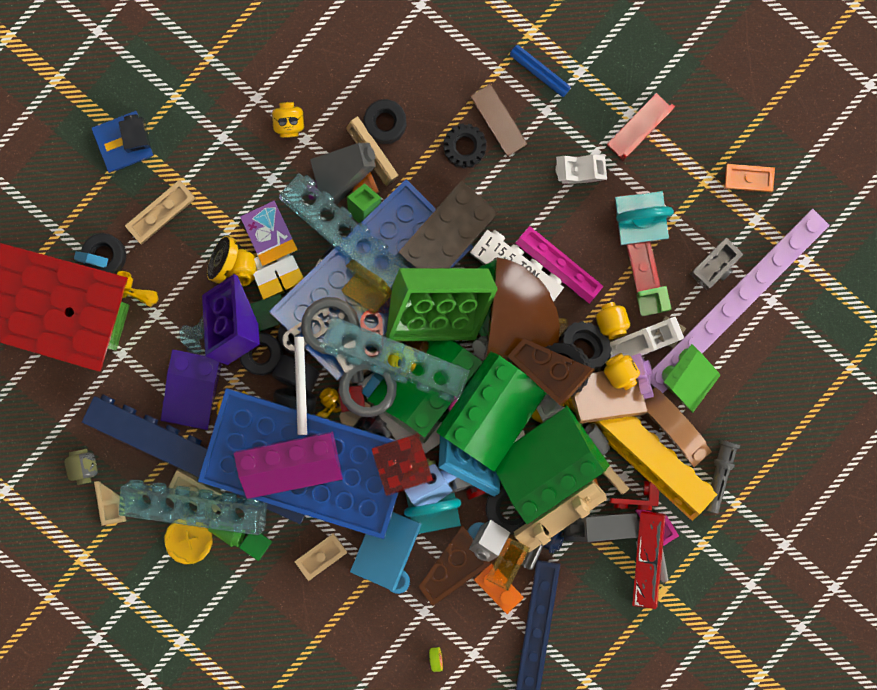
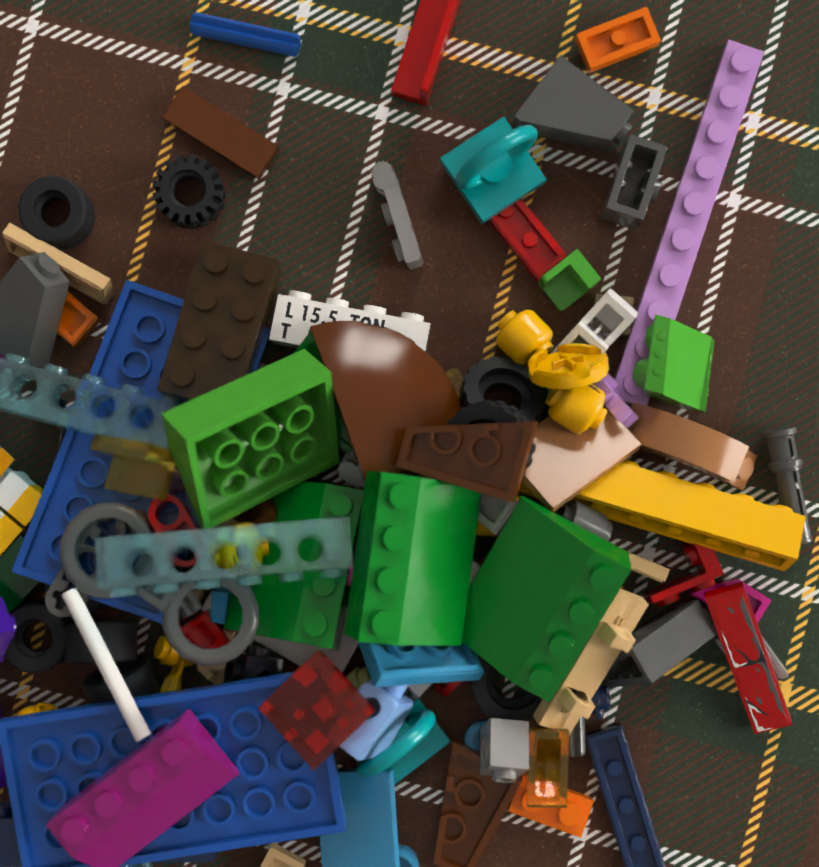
camera: 25 degrees left, 0 degrees up
(362, 202) = (78, 343): bright green panel -> none
(559, 264) = (407, 295): dark pink plate -> none
(575, 215) = (396, 213): none -> light grey hinge
(581, 169) = (376, 139): white brick -> none
(629, 349) = (569, 367): none -> yellow tile
(704, 206) = (574, 109): none -> dark grey slope

